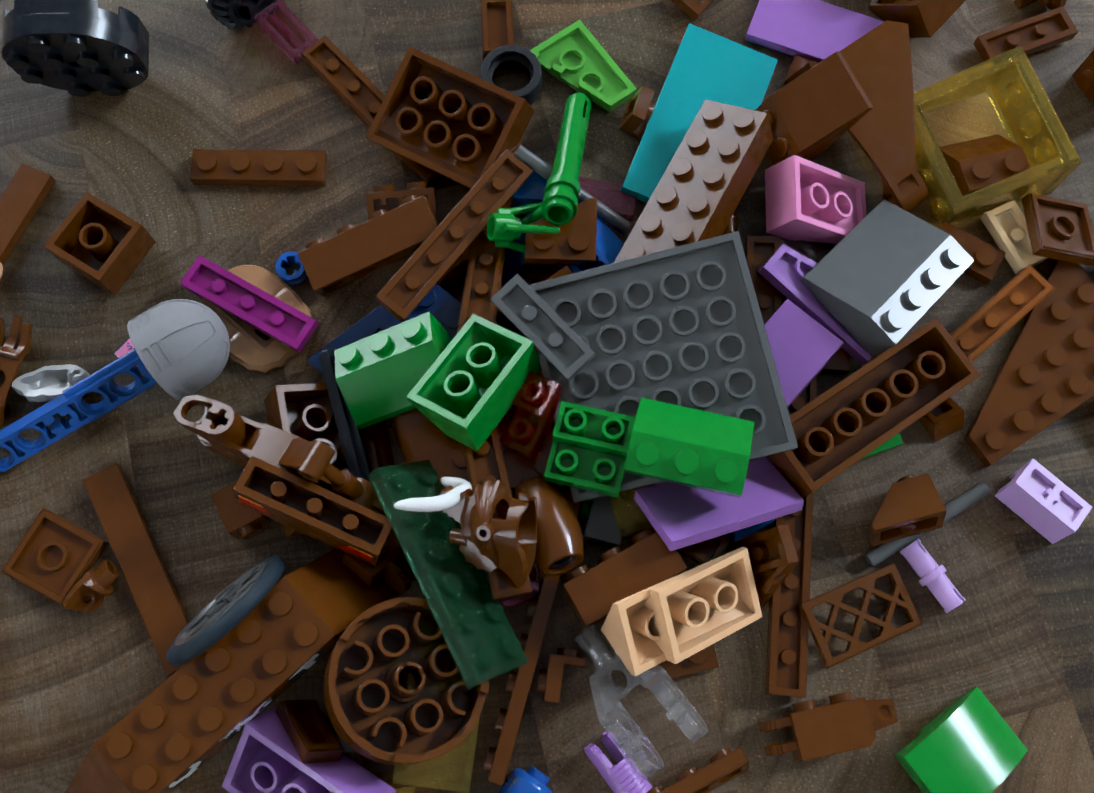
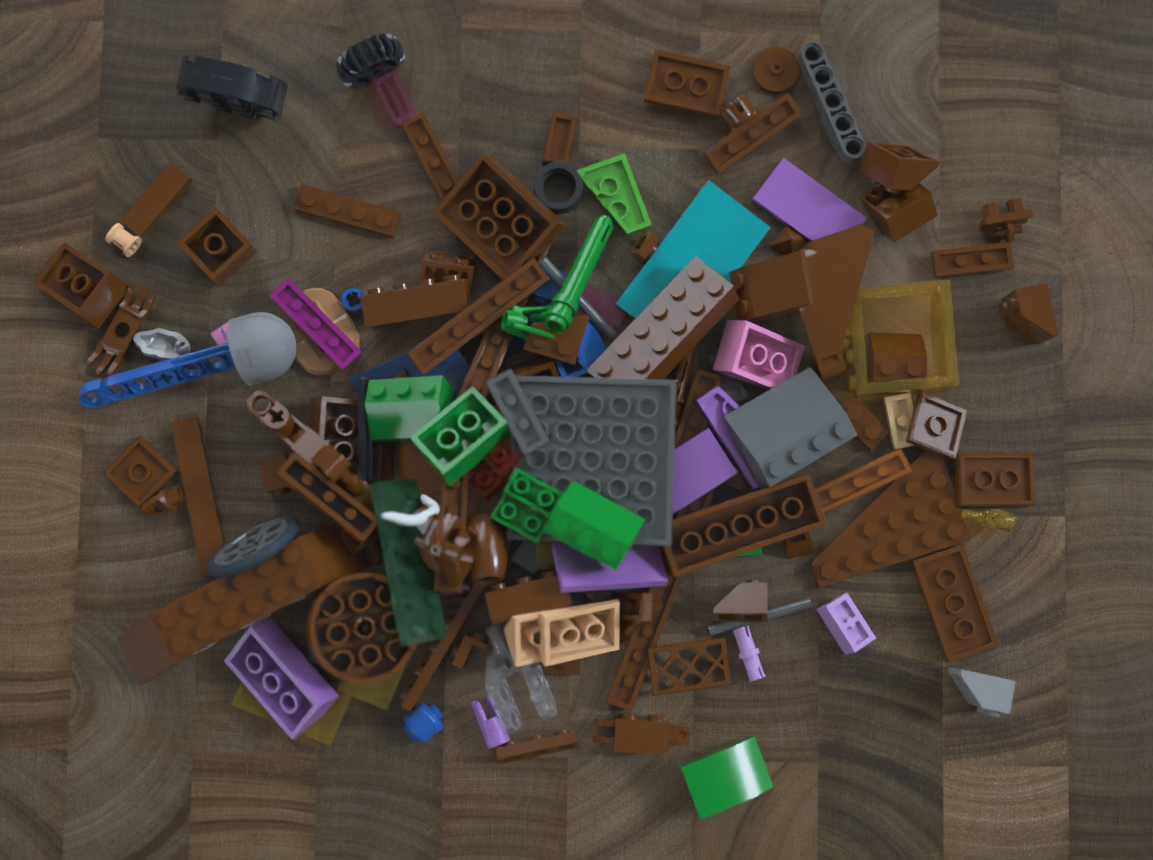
camera: 15 degrees right, 10 degrees up
(309, 731) = (290, 641): reddish brown tile -> none

